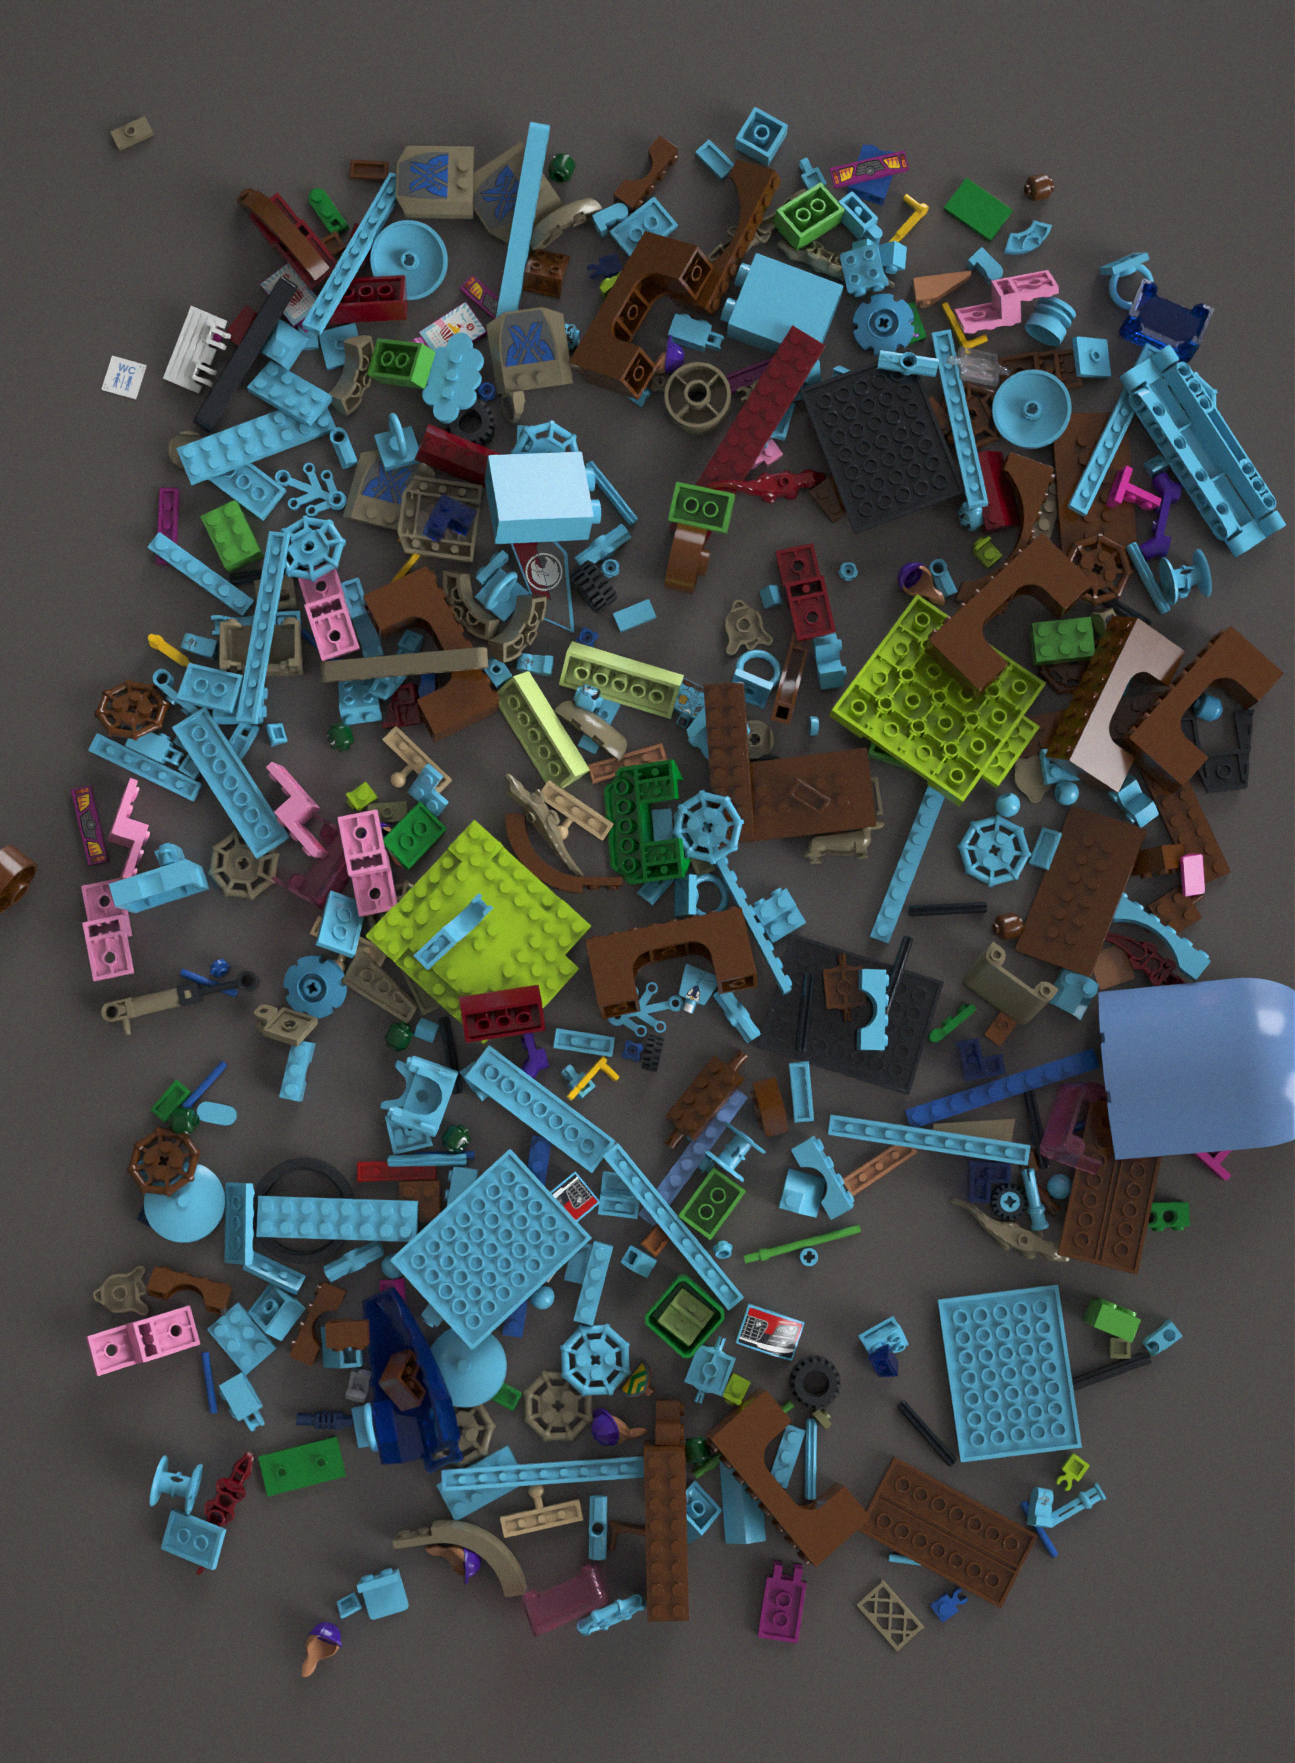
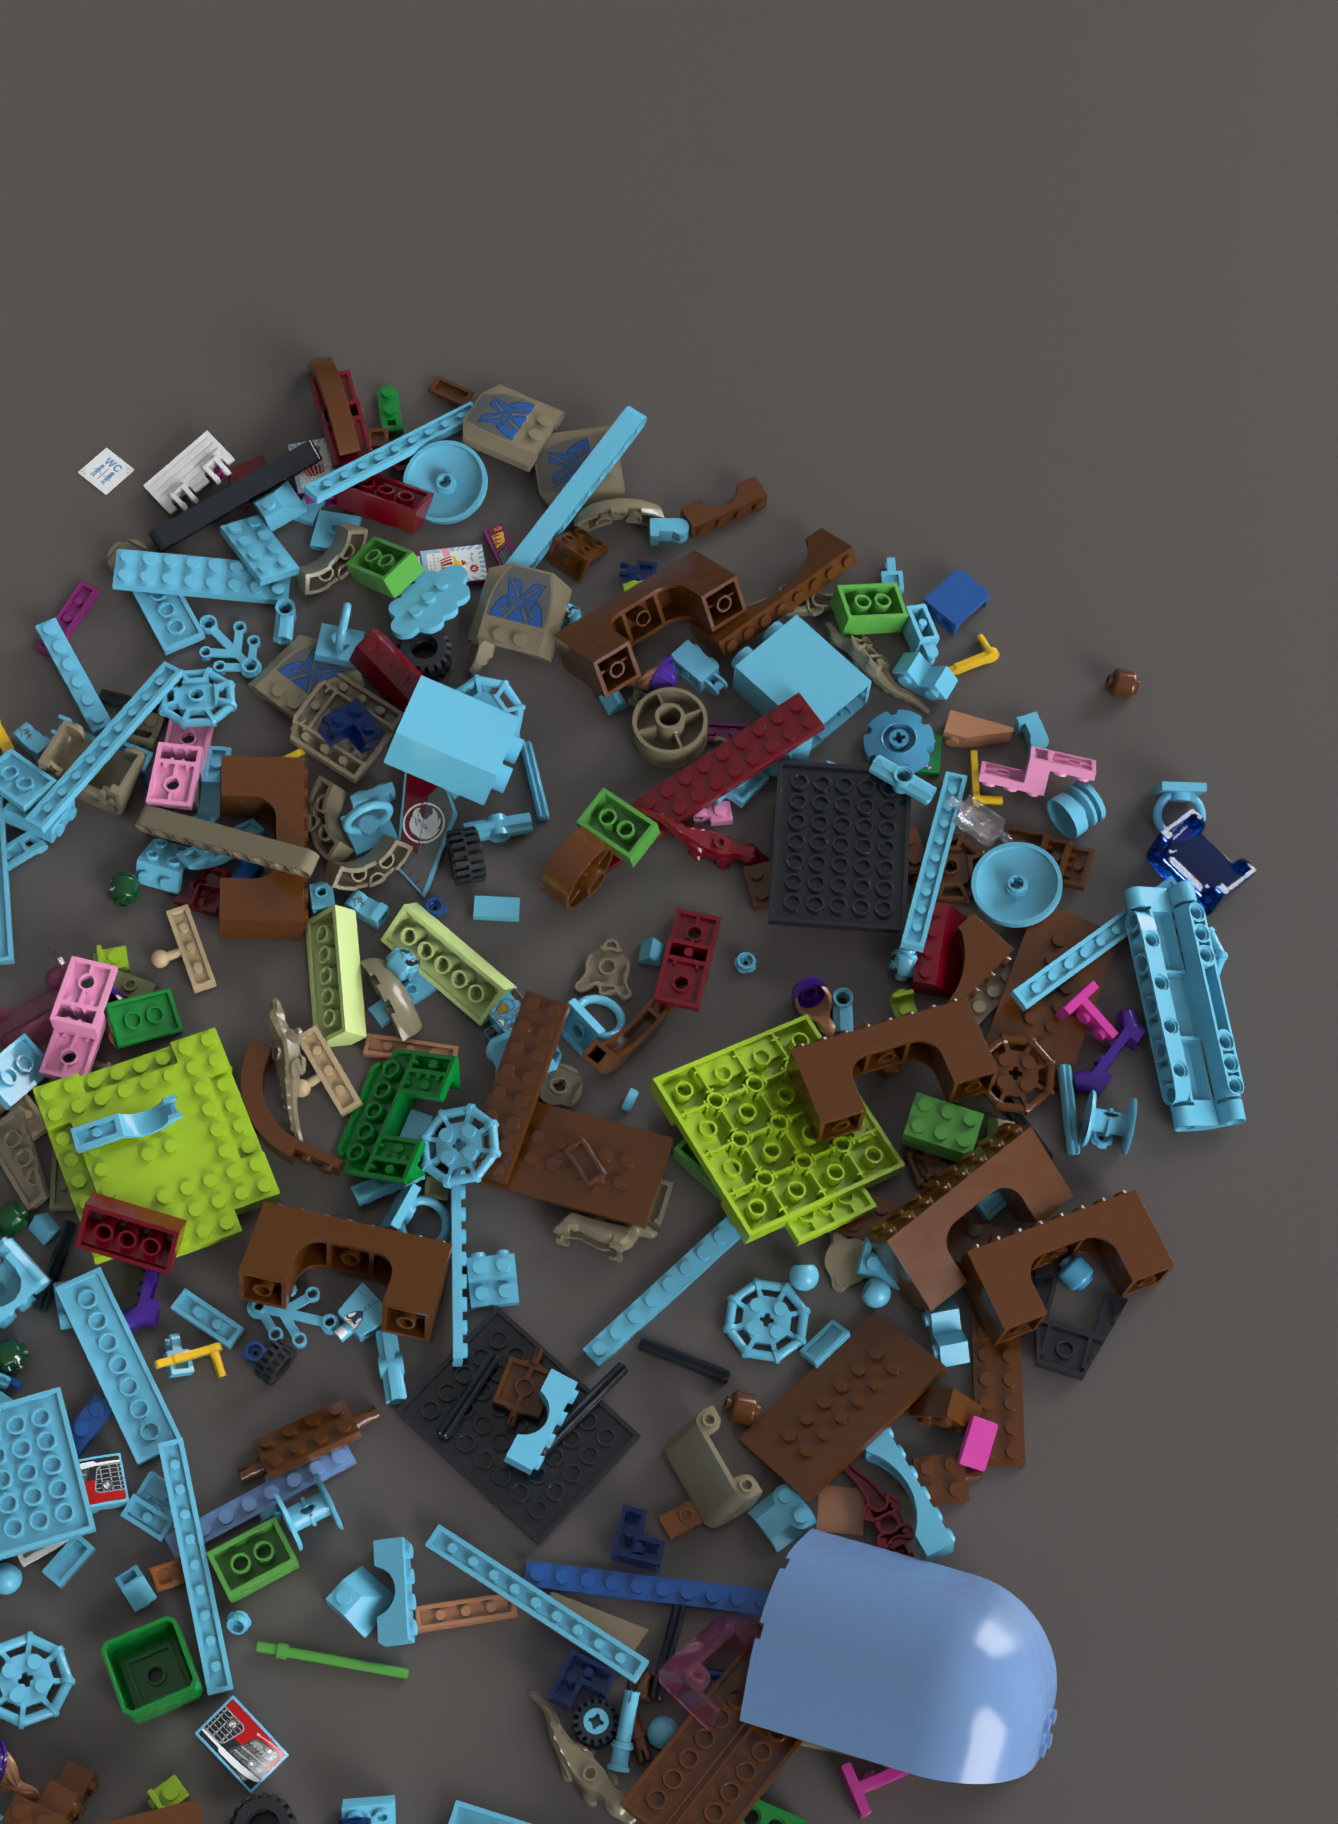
camera: 15 degrees right, 20 degrees down
(132, 133) = (240, 268): dark tan plate -> none
(232, 536) = (125, 654): bright green brick -> none
(276, 734) = (60, 859): medium azure slope -> none
(296, 811) = (33, 937): bright pink bracket -> none
(424, 790) = (181, 980): medium azure plate -> none
(484, 387) = (458, 628): blue plate -> none
(561, 167) = (642, 466): dark green head -> none
(593, 1282) = (84, 1573): medium azure arch -> none
(610, 563) = (491, 847): medium azure plate -> none
(638, 1382) = (59, 1729): shield -> none
(649, 218) = (710, 544): medium azure plate -> none
(685, 1317) = (152, 1675): yellowish green slope -> none
(710, 1370) = (150, 1756): medium azure plate -> none
(715, 159) = (800, 522): medium azure tile -> none
(761, 136) = (857, 519): medium azure brick -> none
(769, 1107) = (373, 1483): reddish brown brick -> none
(801, 1091) = (419, 1484): medium azure plate -> none
(812, 1261) = (335, 1686): medium azure bush -> none
(828, 662) = (679, 1039): medium azure brick -> none
(863, 270) = (901, 681): medium azure bracket -> none
(869, 169) = (952, 591): tile -> none
(951, 1023) = (625, 1486): green hinge -> none
(978, 210) = (1050, 679): green tile -> none
(1028, 240) = (1090, 729): medium azure tile -> none
(1091, 357) = (1105, 865): medium azure plate -> none
(1156, 466) = (1129, 1000): medium azure slope -> none

